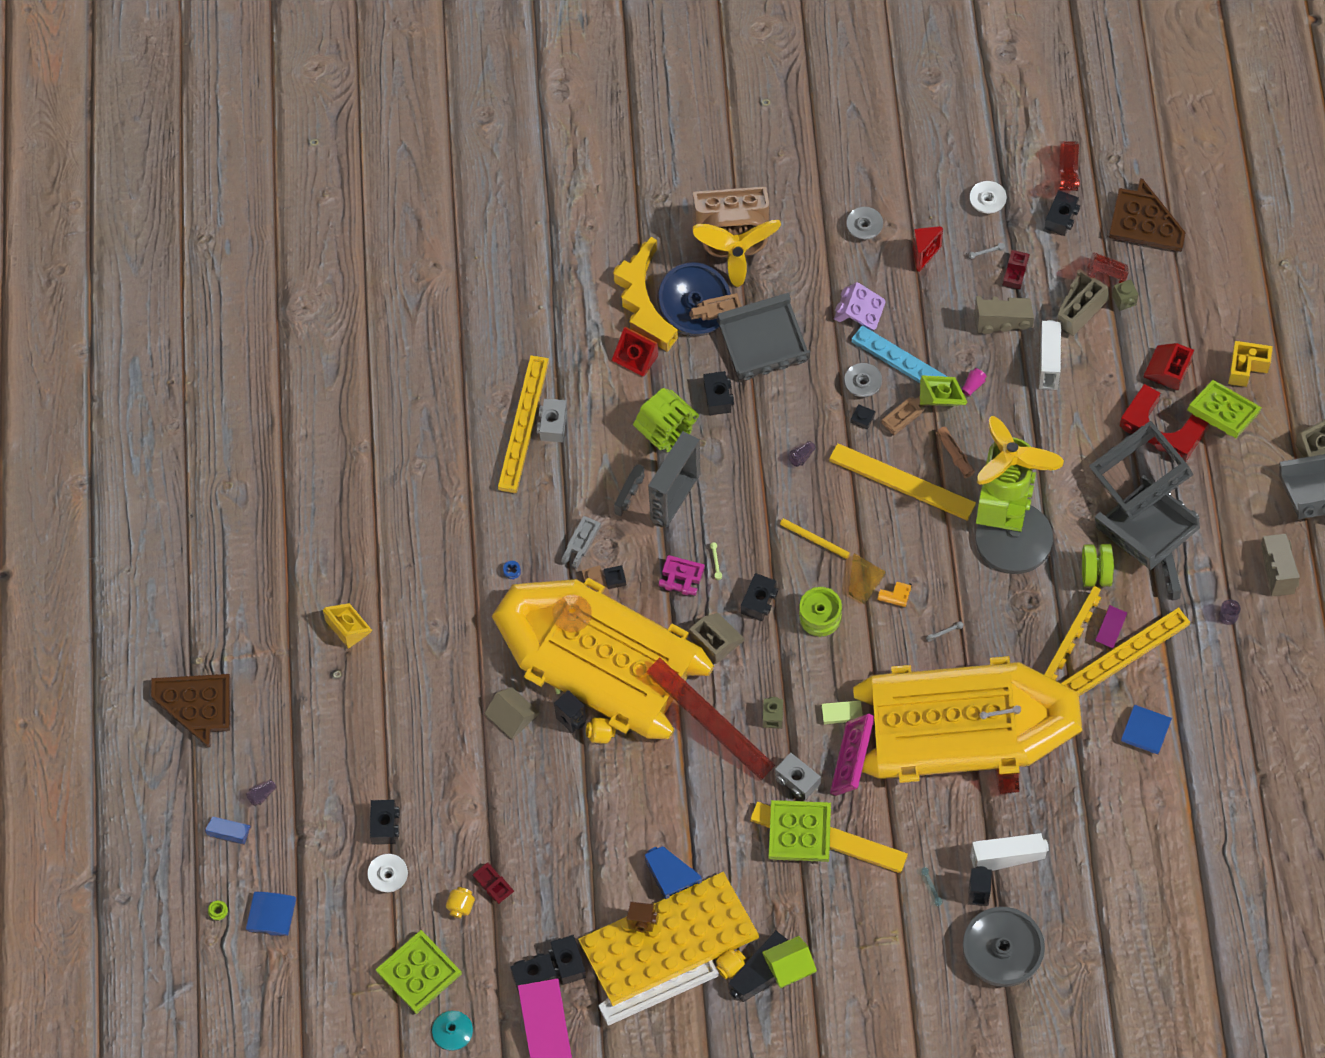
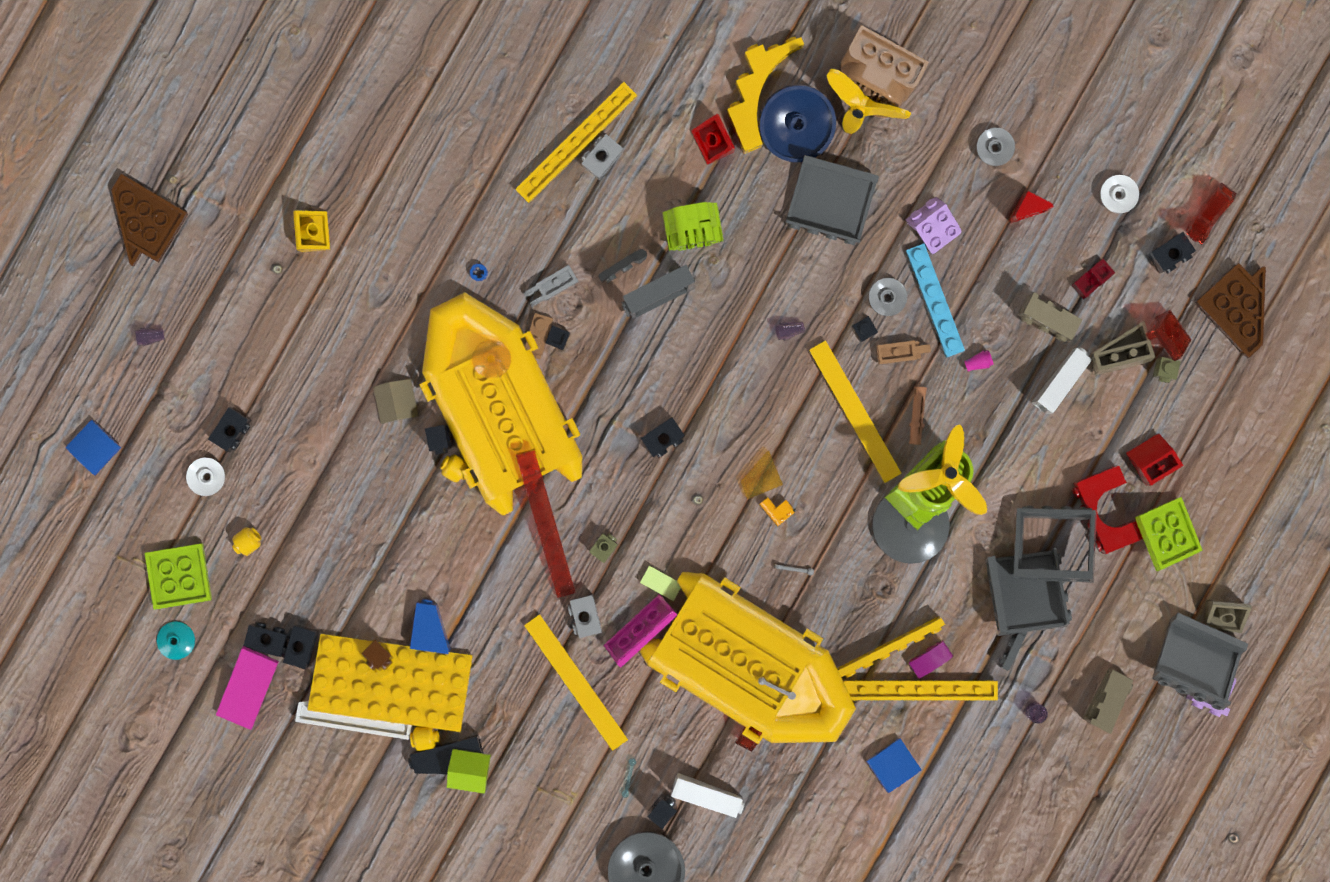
camera: 30 degrees right, 25 degrees up
(217, 905) = (48, 418): lime plate -> none
(227, 830) = (103, 350): slope -> none
(493, 883) = (285, 540): dark red slope -> none
(684, 570) = (617, 369): dark pink plate -> none
(710, 308) = (810, 146): medium nougat hinge -> none
(715, 383) = (761, 214): black brick -> none
(715, 636) = (604, 449): dark tan slope -> none
(718, 575) = (644, 392): yellowish green hinge -> none
(800, 831) = (554, 665): lime plate -> none
(814, 538) = (746, 413): yellow bar -> none
(820, 611) = (713, 482): lime wheel -> none
(941, 391) = (942, 357): lime slope -> none
(1001, 246) = (1097, 247): light grey hinge -> none
(1097, 565) = (957, 602): lime wheel -> none
(1248, 358) = (1221, 498): yellow brick -> none

